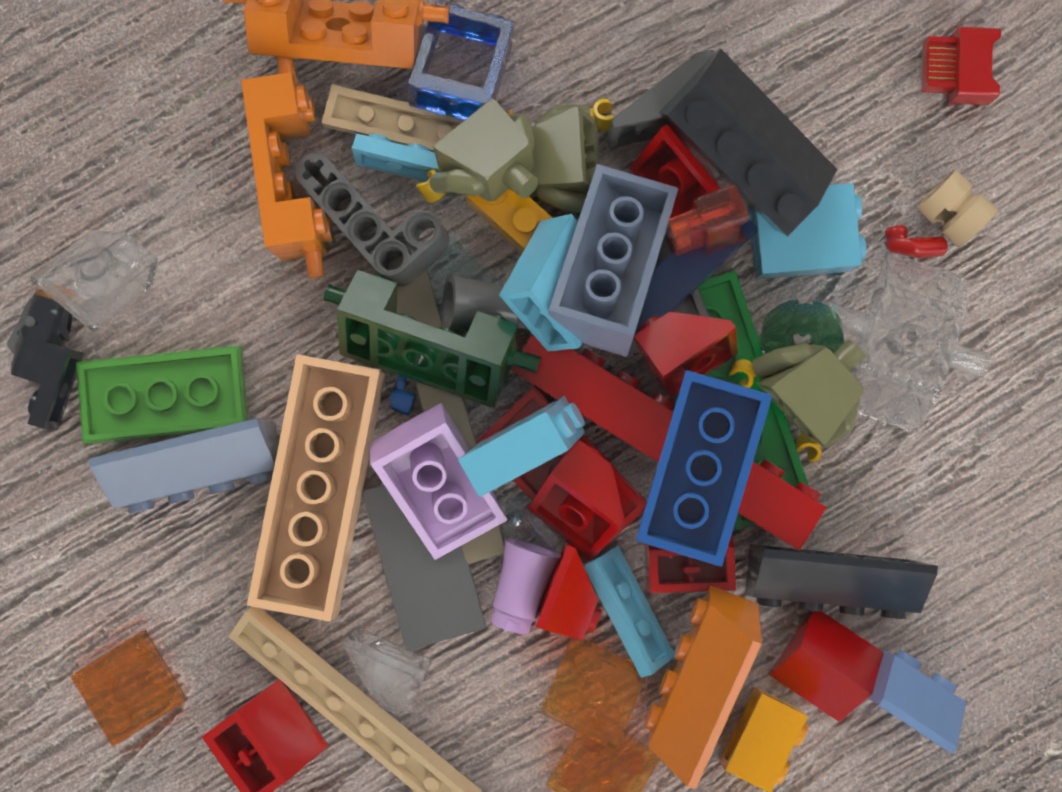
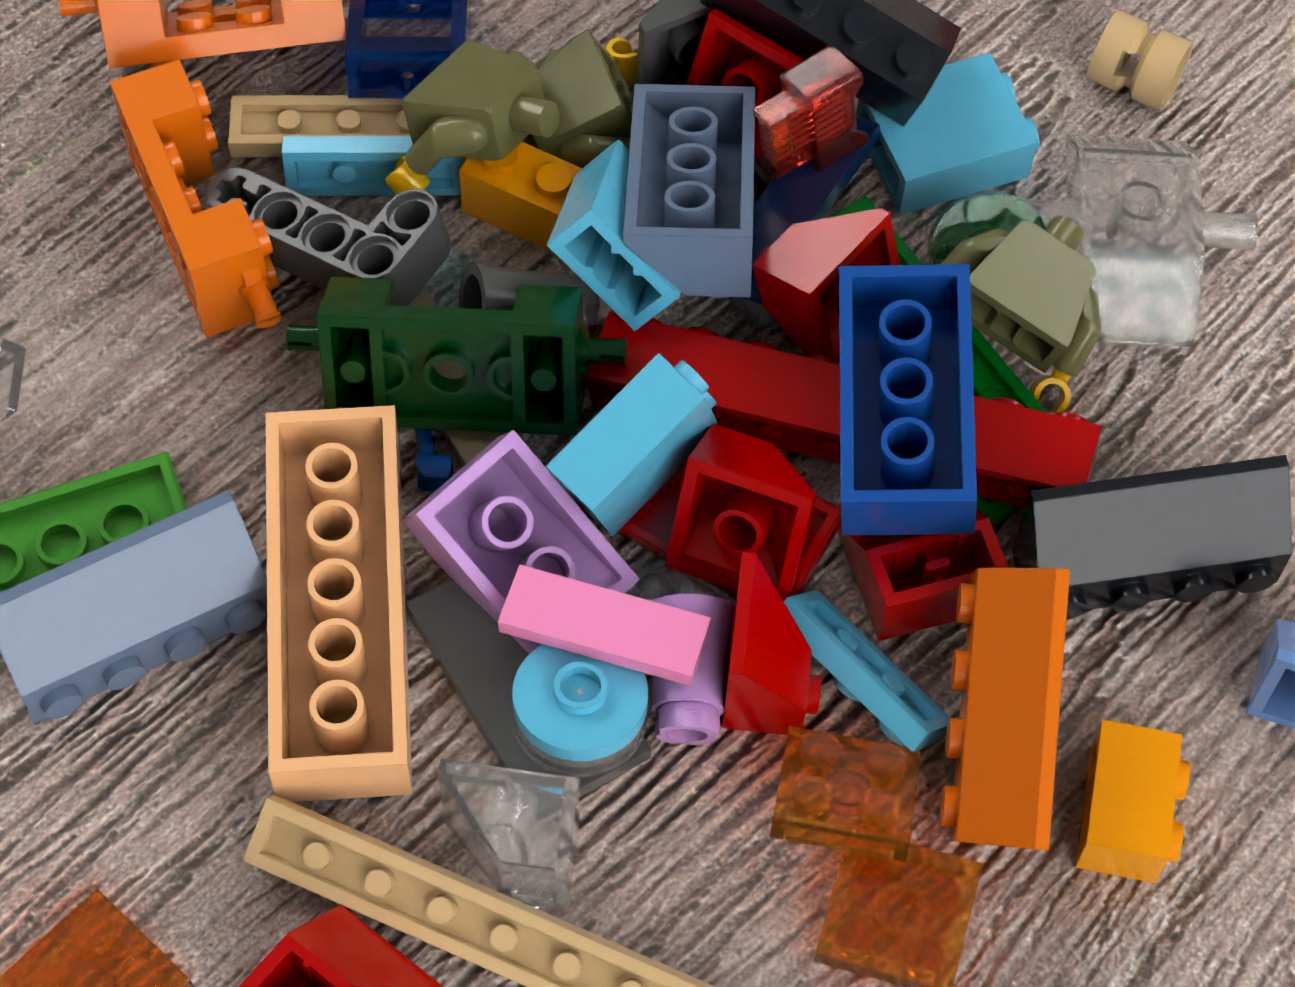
camera: 20 degrees left, 25 degrees down
(446, 599) = (578, 712): none -> medium azure piece
(472, 561) = (605, 624): none -> bright pink tile
(828, 665) = (1188, 682): red slope -> none
(919, 247) = (1100, 120): red arm -> none

